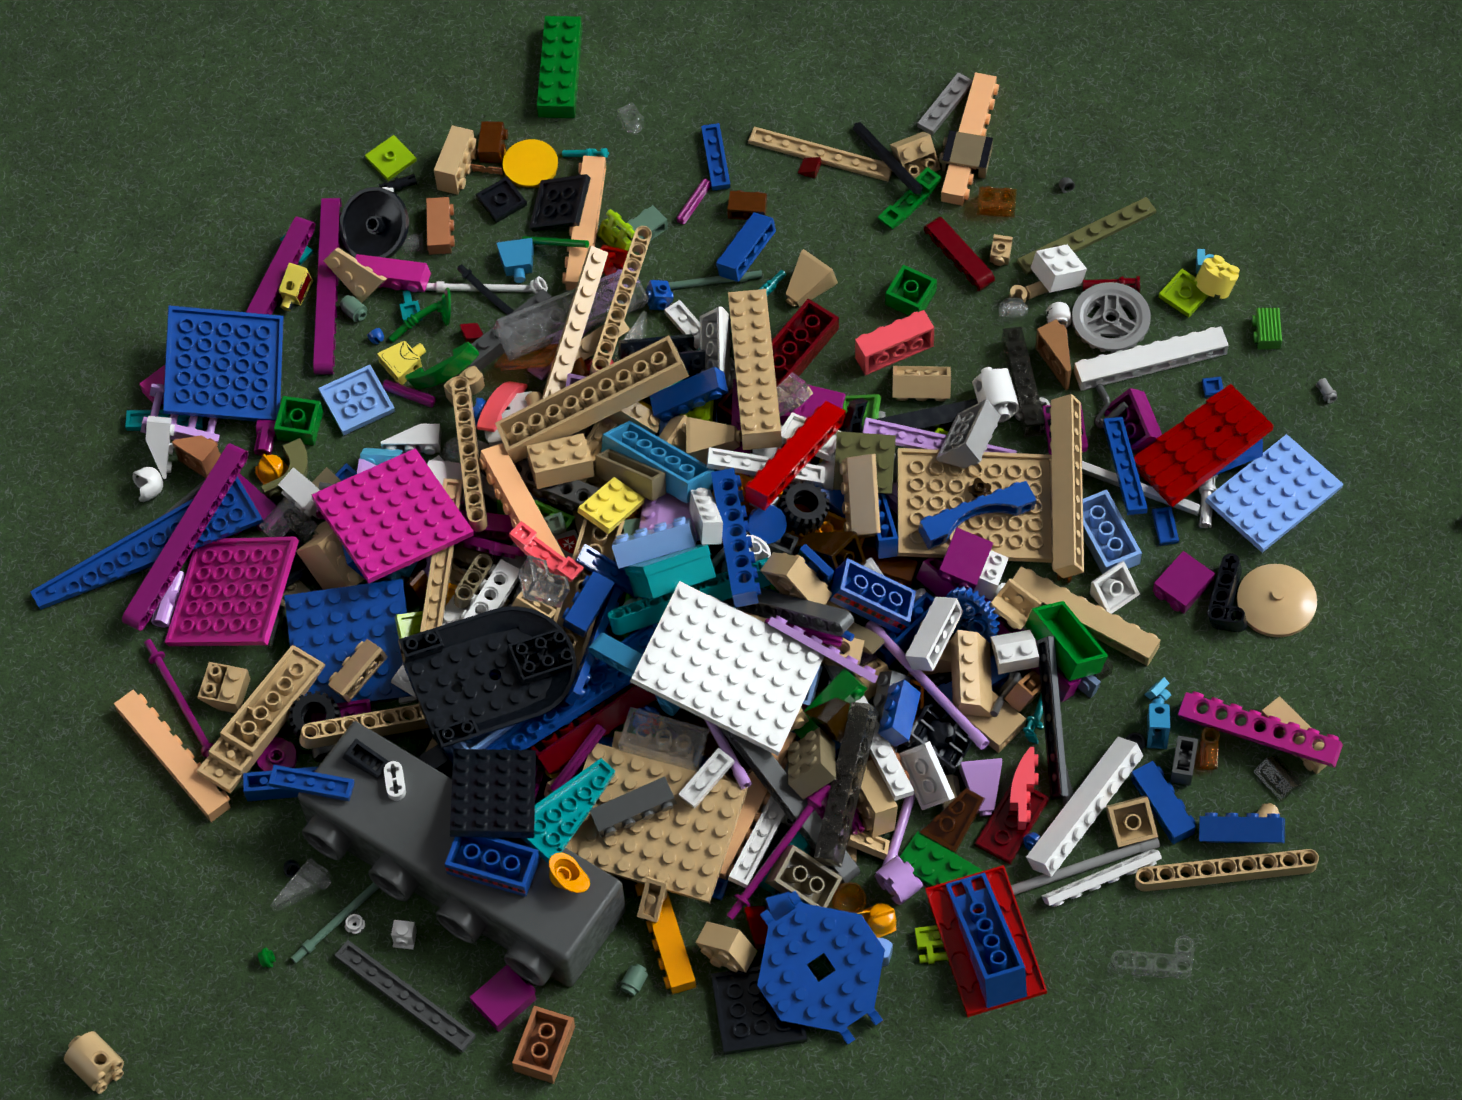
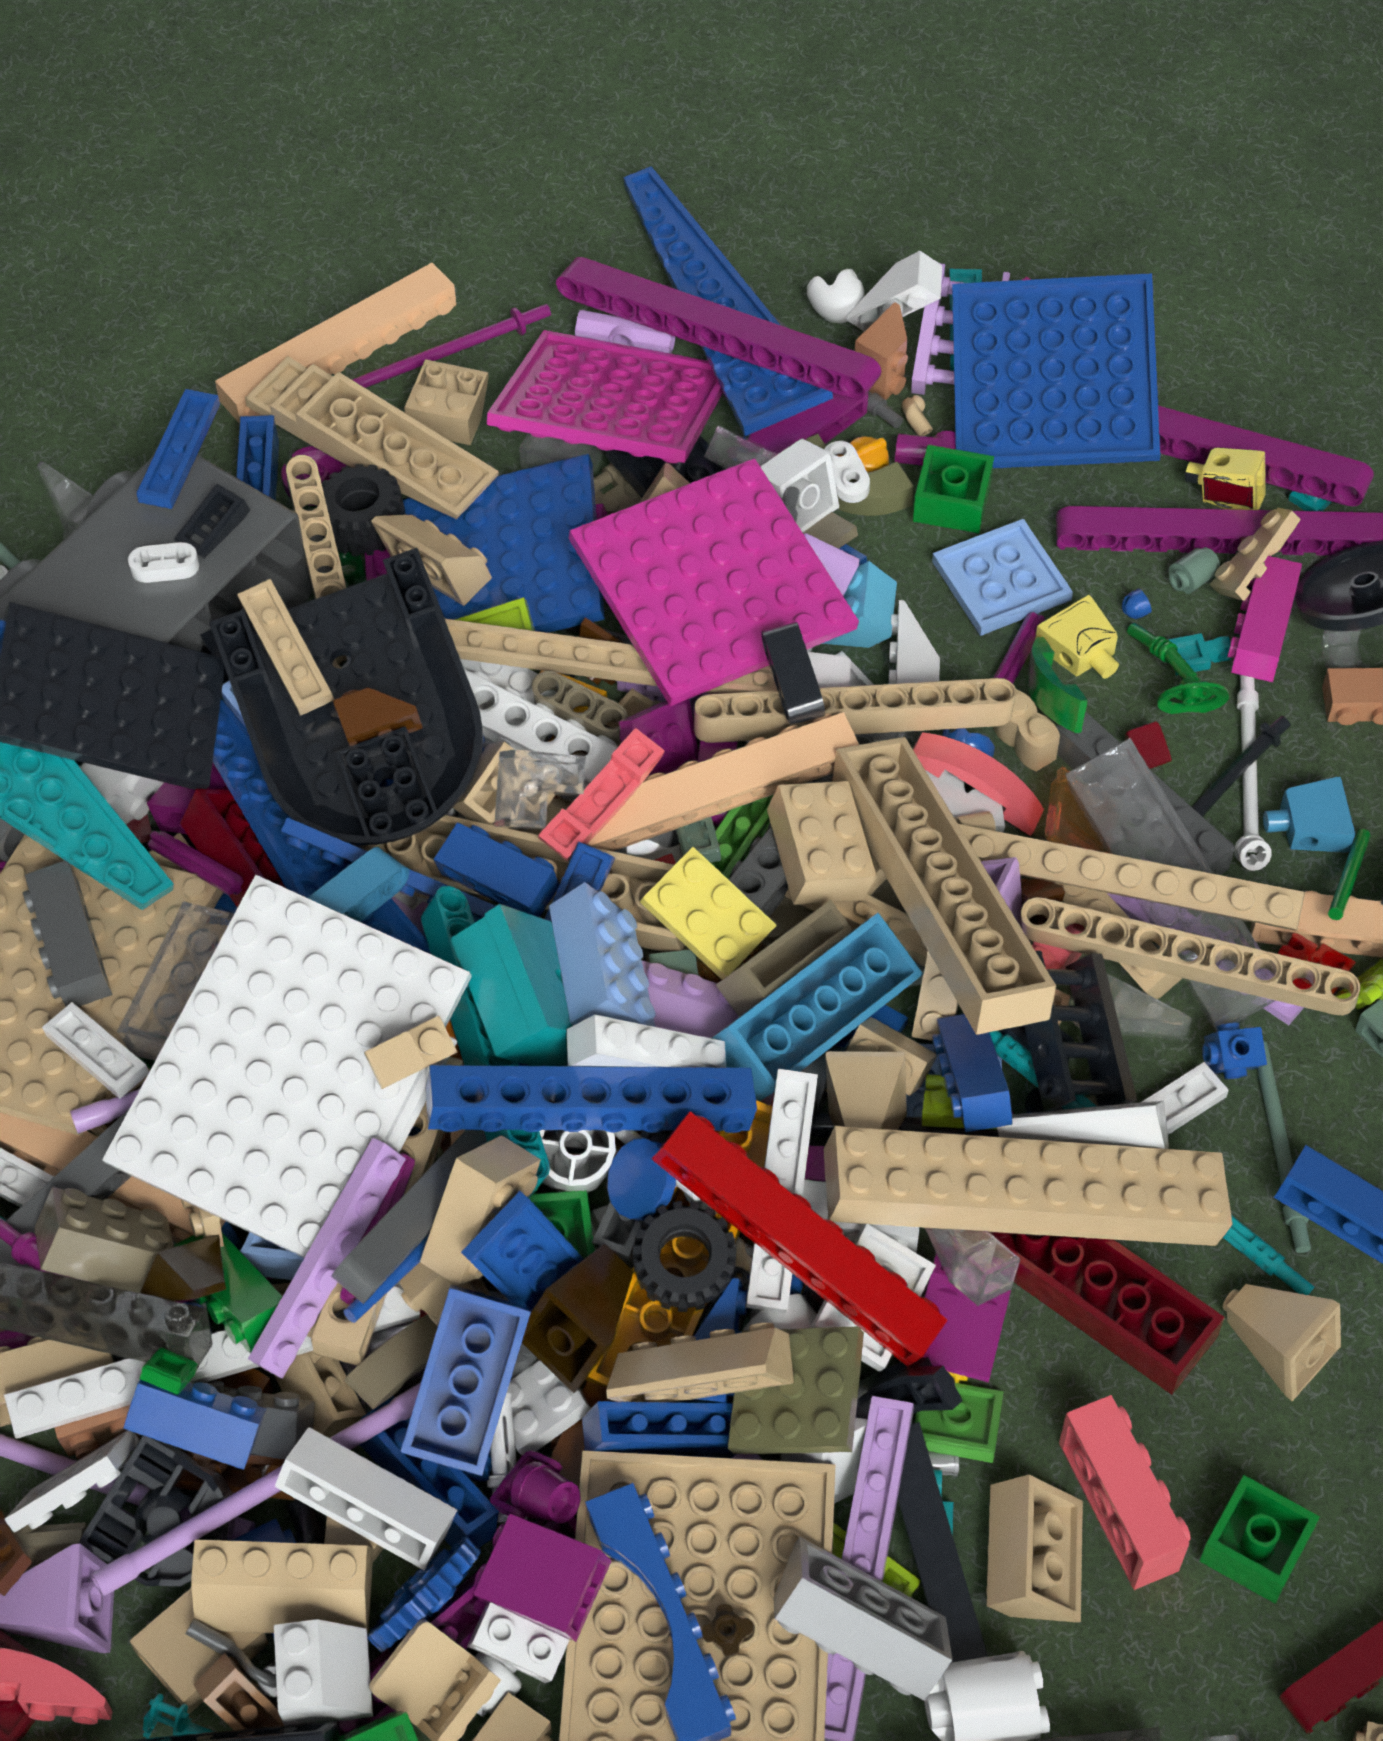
camera: 90 degrees right, 5 degrees down
(242, 442) = (913, 410): none -> tan arm
(288, 465) = (848, 468): none -> white plate
(457, 707) = (285, 647): none -> tan plate
(460, 471) = (793, 673): none -> black beam
(503, 661) = (373, 713): none -> reddish brown slope
(726, 603) = (410, 1052): none -> tan slope
(884, 716) = (168, 1371): none -> green tile
(919, 567) = (537, 1490): none -> magenta piece

